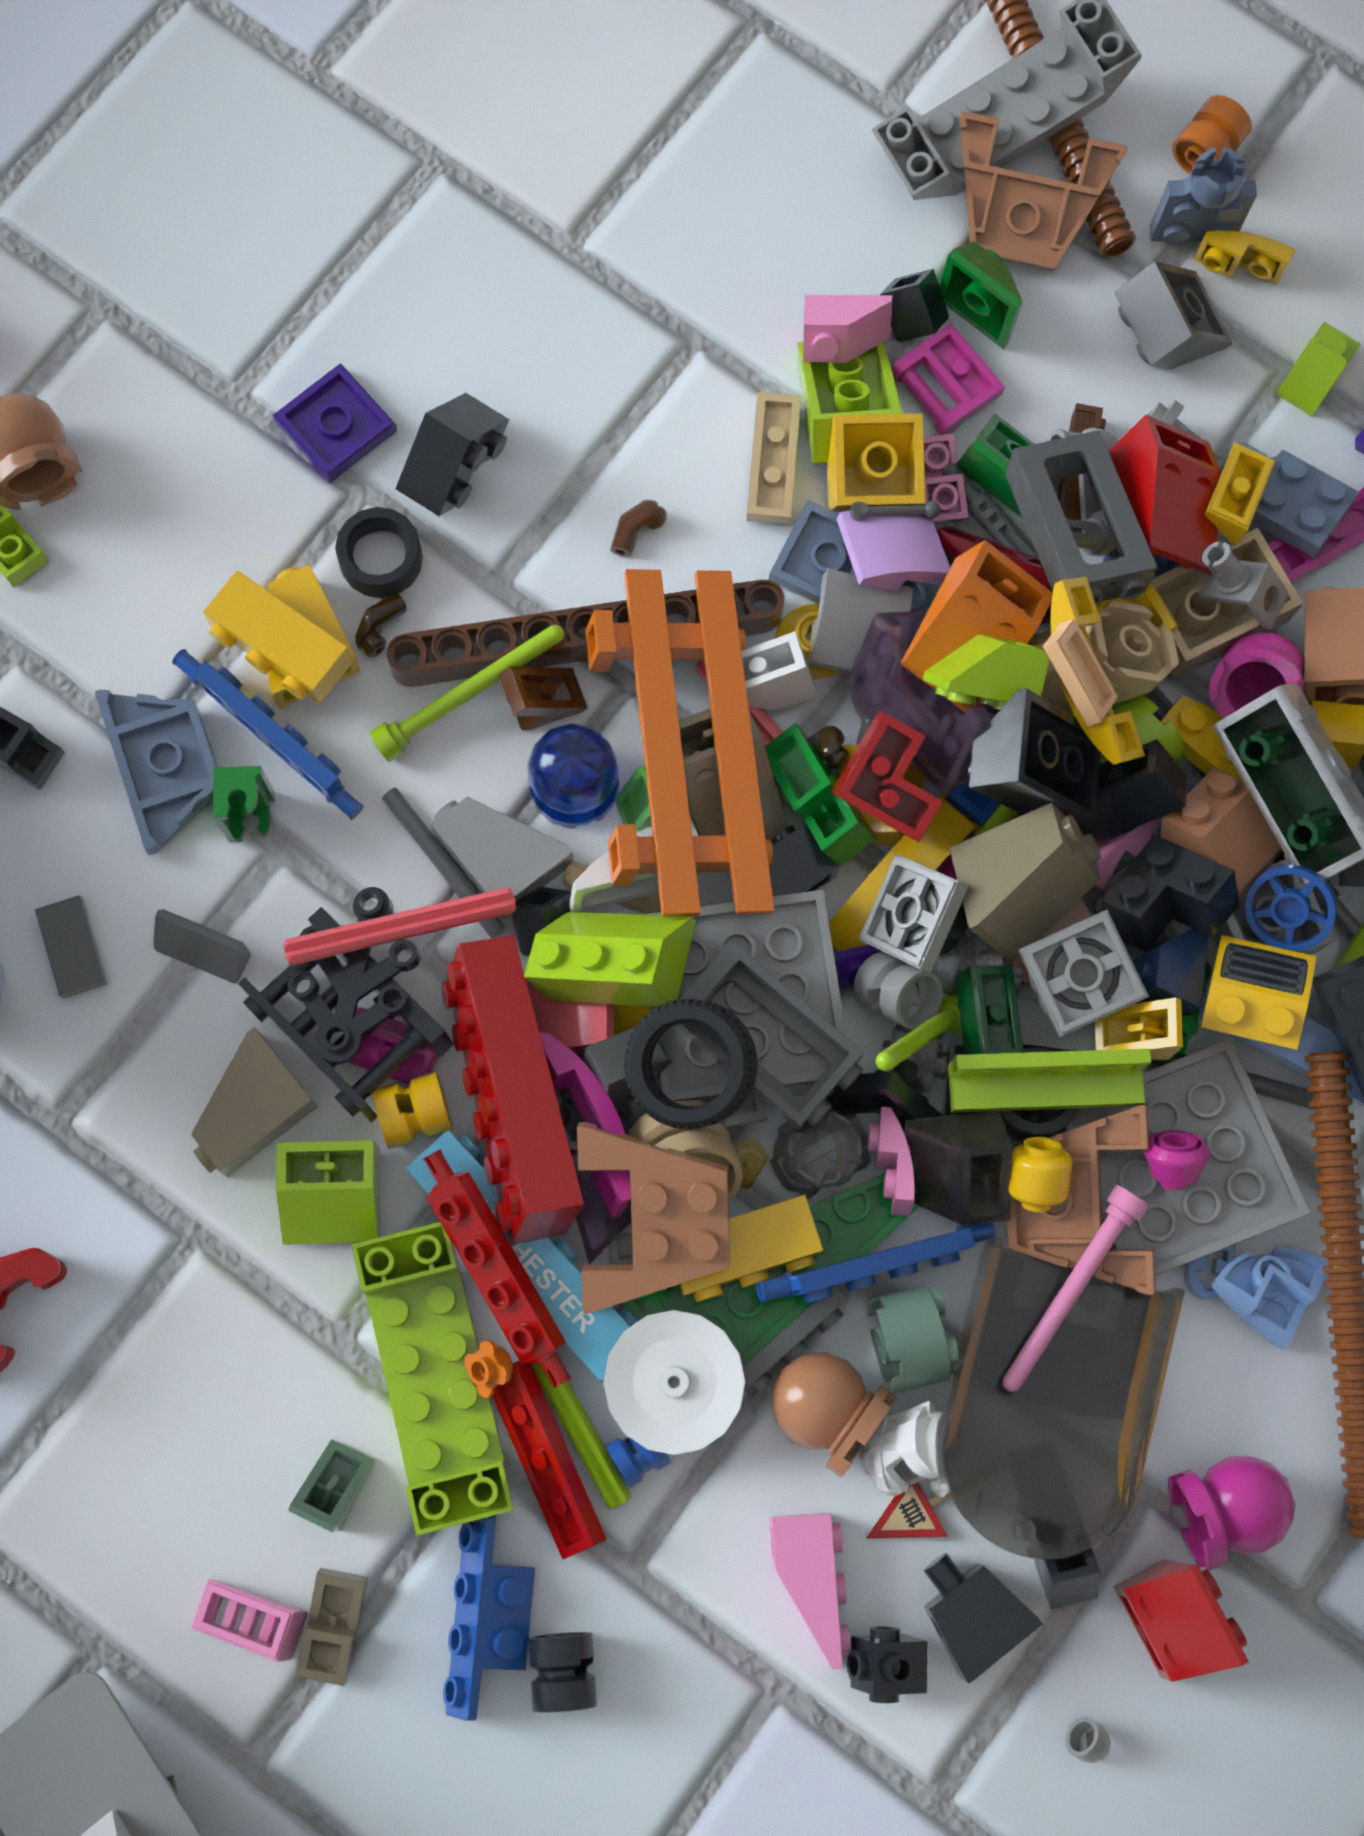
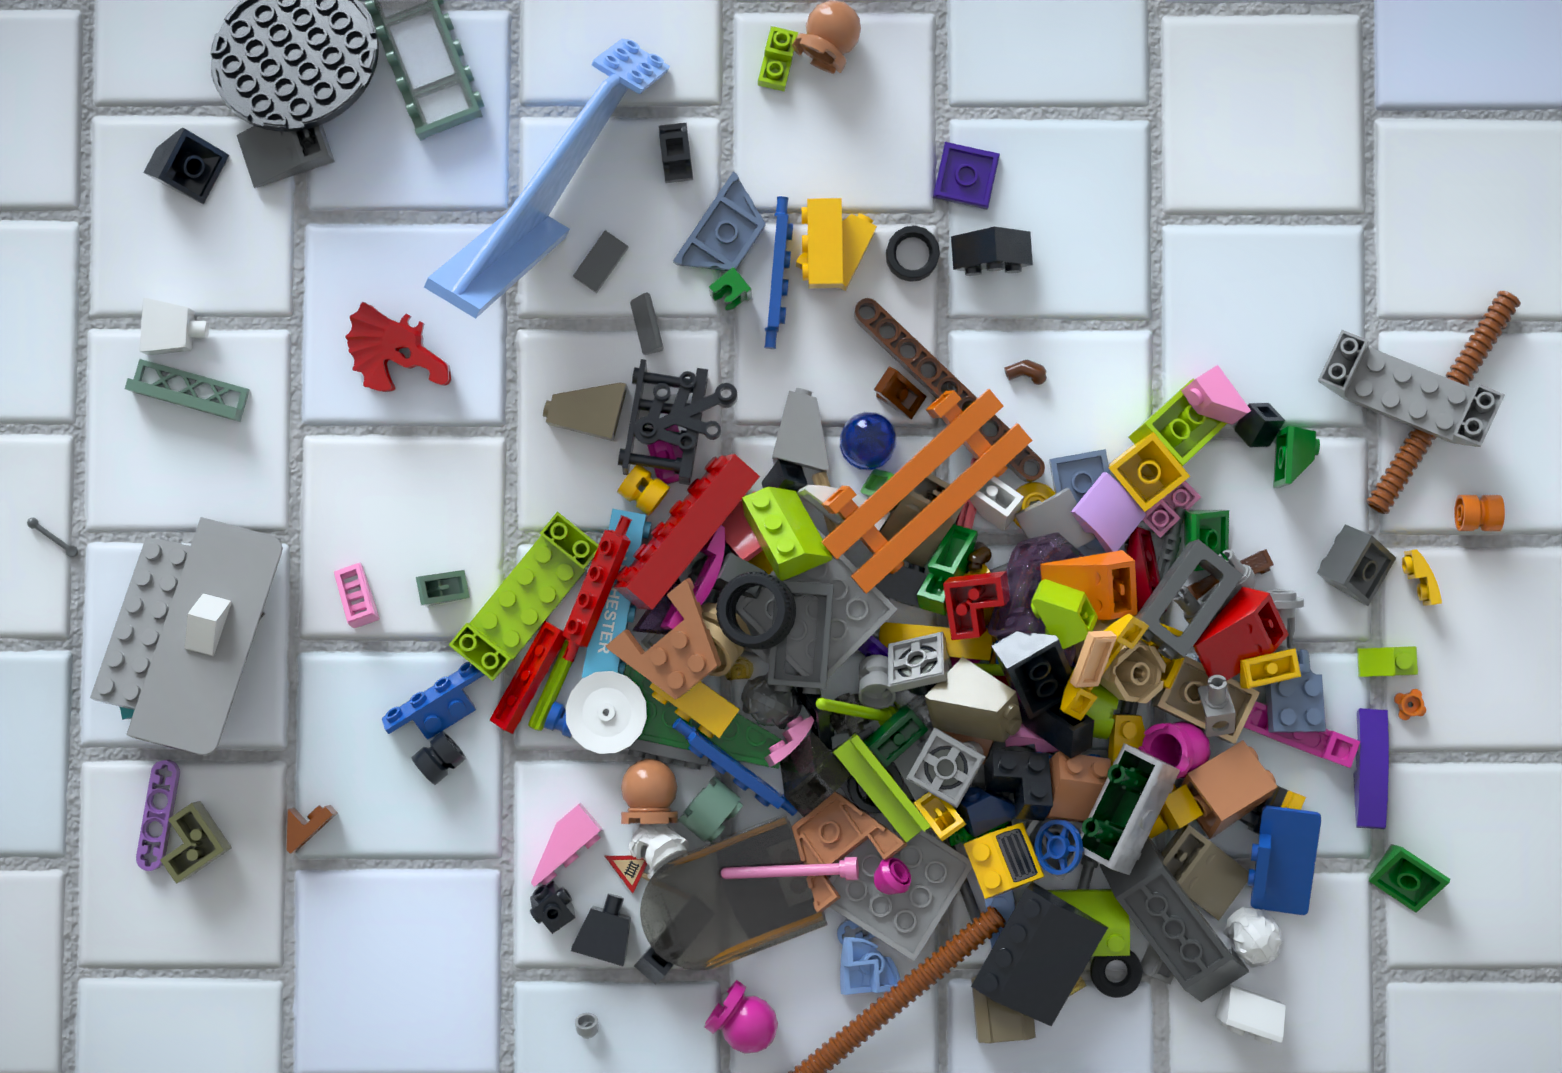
camera: 55 degrees right, 10 degrees up
(328, 1191) = (575, 480): lime slope -> none
(331, 1626) = (381, 635): dark tan slope -> none
(374, 619) = (875, 278): dark brown arm -> none
(393, 737) = (820, 335): lime piece -> none
(399, 926) = (725, 417): coral axle -> none
(437, 854) = (778, 408): dark grey bar -> none
(489, 1367) = (549, 619): orange plate -> none
(773, 458) = (1117, 414): tan plate -> none
(860, 511) = (1113, 482): dark grey hinge -> none
(956, 370) = (1238, 475): dark pink plate -> none
(1025, 214) = (1355, 446): nougat wing -> none
(1040, 1174) = (834, 816): yellow head -> none
(1181, 1620) = (669, 1028): red slope -> none
(1207, 200) = (1431, 537): sand blue plate -> none

